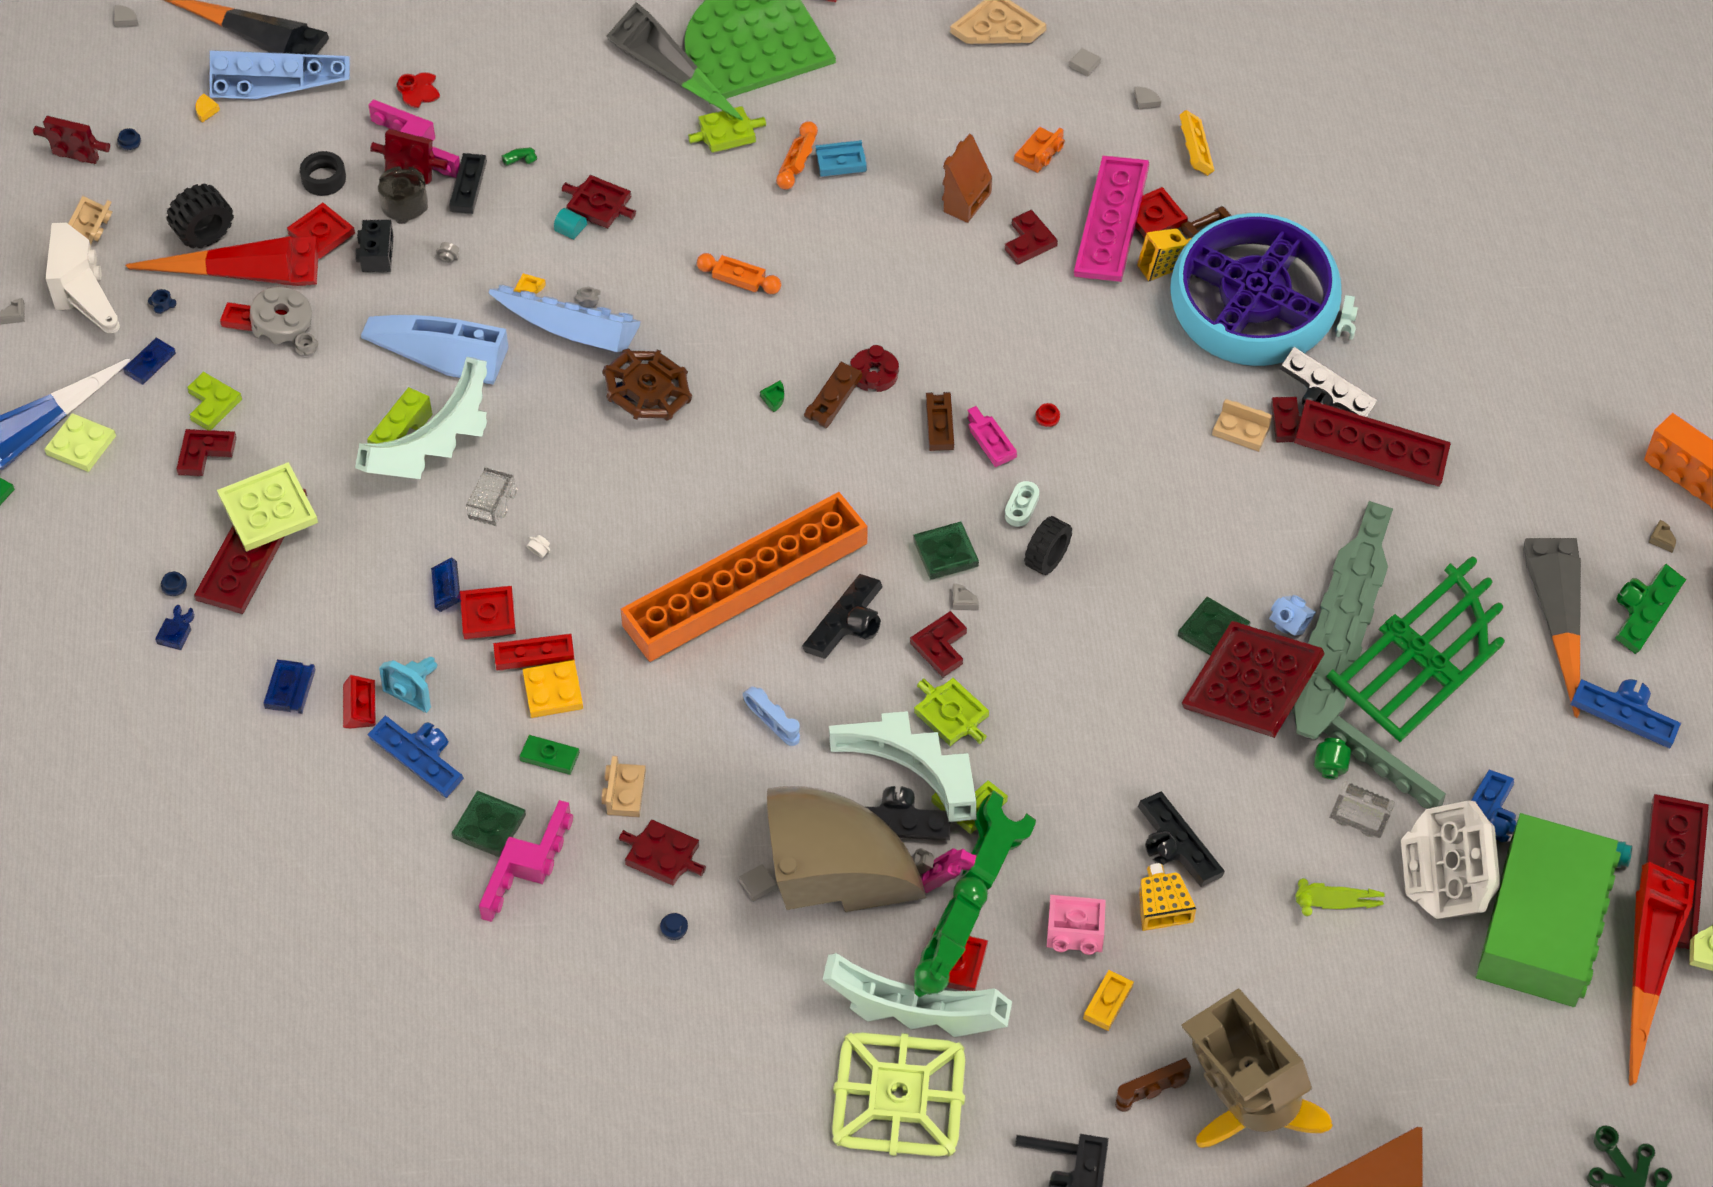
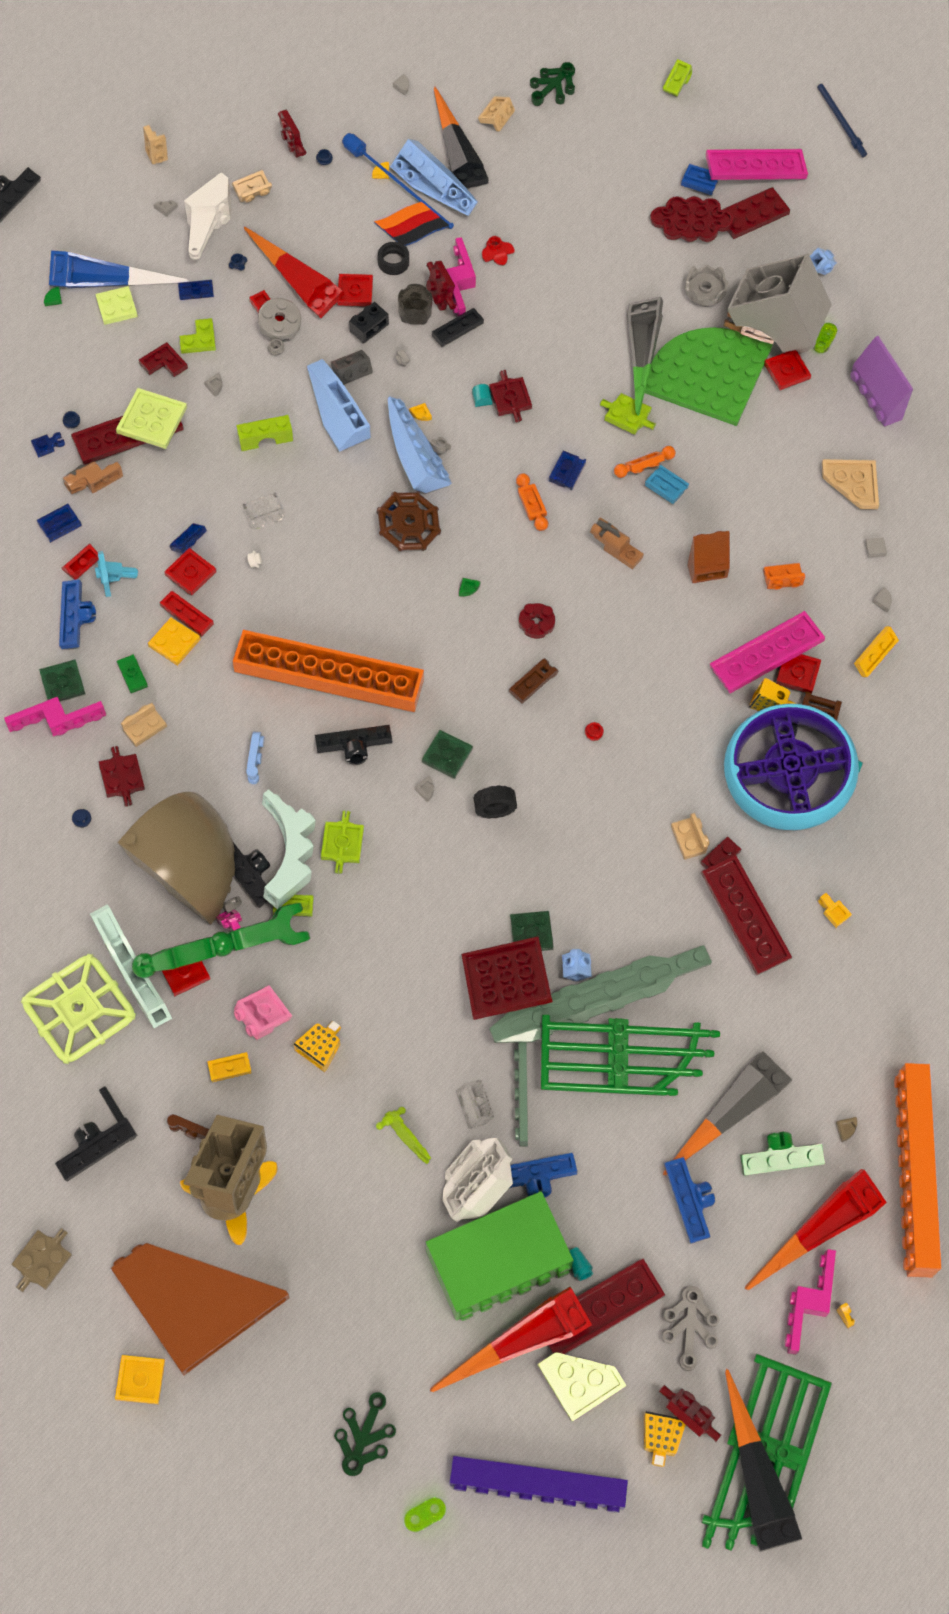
camera: 45 degrees right, 10 degrees up
(199, 216) = (300, 229): black tyre -> none
(268, 616) = (92, 477): none -> medium nougat plate
(284, 429) = (214, 384): none -> light grey tile
(295, 132) = (411, 222): none -> flag
(408, 296) = (352, 366): none -> dark grey bracket
(437, 437) = (244, 451): light aqua arch -> none
(518, 154) = (501, 332): green arm -> none
(735, 220) = (567, 470): none -> clear blue plate
(833, 394) = (495, 614): reddish brown plate -> none
(862, 242) = (616, 543): none -> medium nougat plate
(935, 641) = (381, 796): dark red plate -> none
(990, 437) = (547, 715): dark pink hinge -> none
(1020, 505) = (516, 766): light aqua plate -> none
(1033, 239) = (712, 627): dark red plate -> none
(1177, 840) = (365, 1022): black plate -> none
(1325, 385) = (761, 859): plate -> none
(1332, 758) = (498, 1062): green head -> none
(1348, 314) = (832, 830): light aqua plate -> none
(1434, 375) = (835, 912): none -> yellow plate

